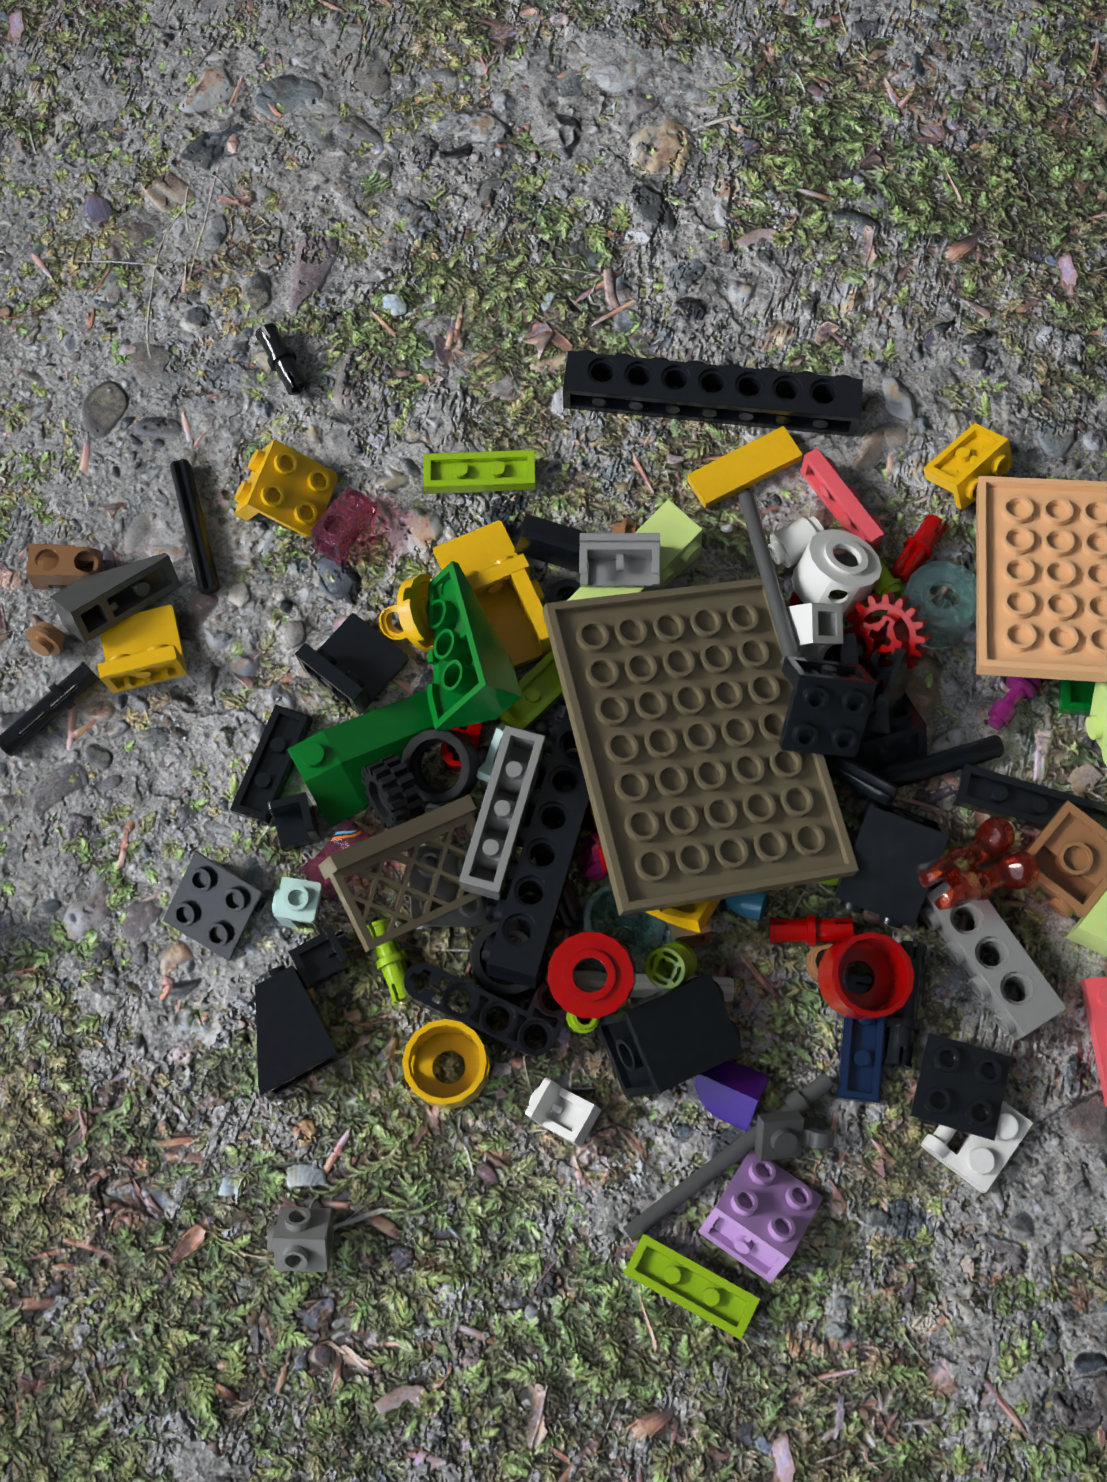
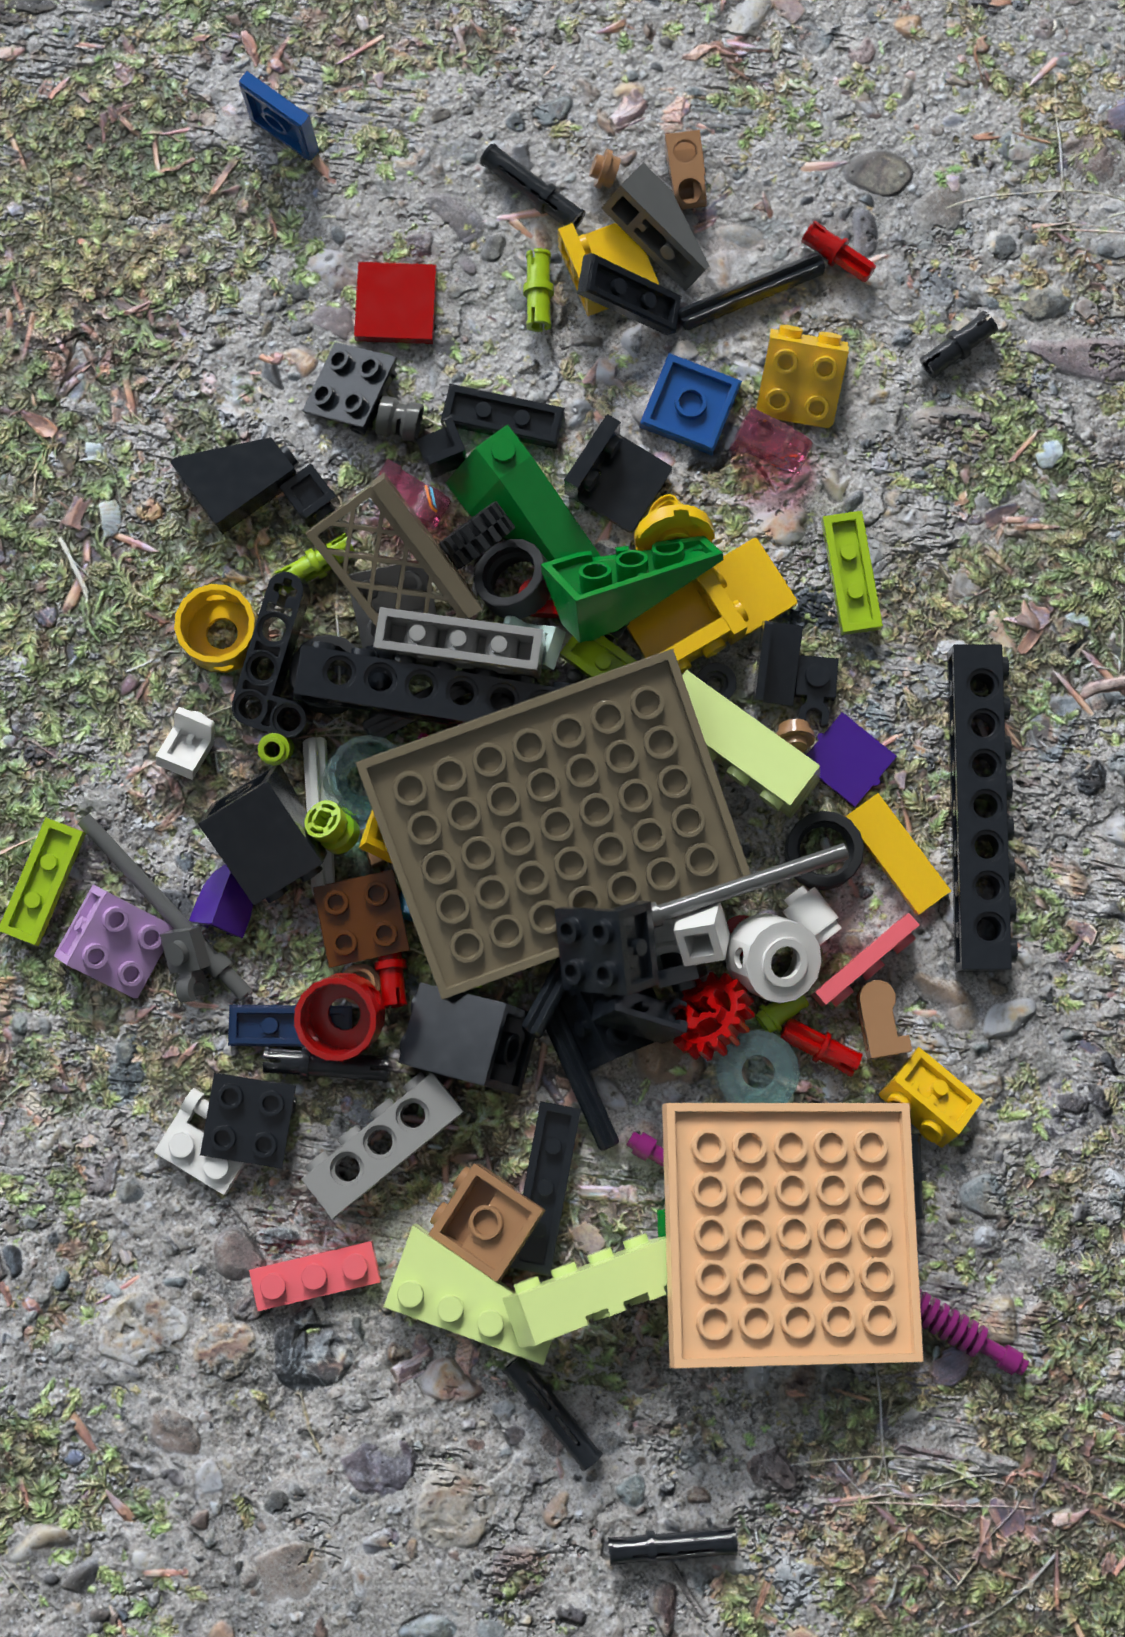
camera: 80 degrees right, 10 degrees up
(135, 854) = (395, 302): none -> red tile
(152, 714) = (538, 290): none -> lime pin
(173, 446) = (837, 251): none -> red axle
(178, 624) = (629, 294): none -> black tile
(257, 860) = (399, 419): none -> dark grey wheel
(292, 593) = (690, 404): none -> blue tile
(296, 902) = (358, 461): light aqua bracket -> none
(302, 1239) = (46, 522): light grey brick -> none
(580, 514) = (816, 683): none -> black plate
(619, 560) = (738, 721): light grey hinge -> none
(619, 968) = (322, 759): red piece -> none
(648, 491) = (850, 759): none -> dark purple piece
(718, 546) = (848, 832): none -> black tyre
(764, 950) = (361, 918): none -> reddish brown hinge
(899, 498) = (877, 1021): none -> medium nougat leg
(967, 882) = (440, 1116): clear red piece -> none

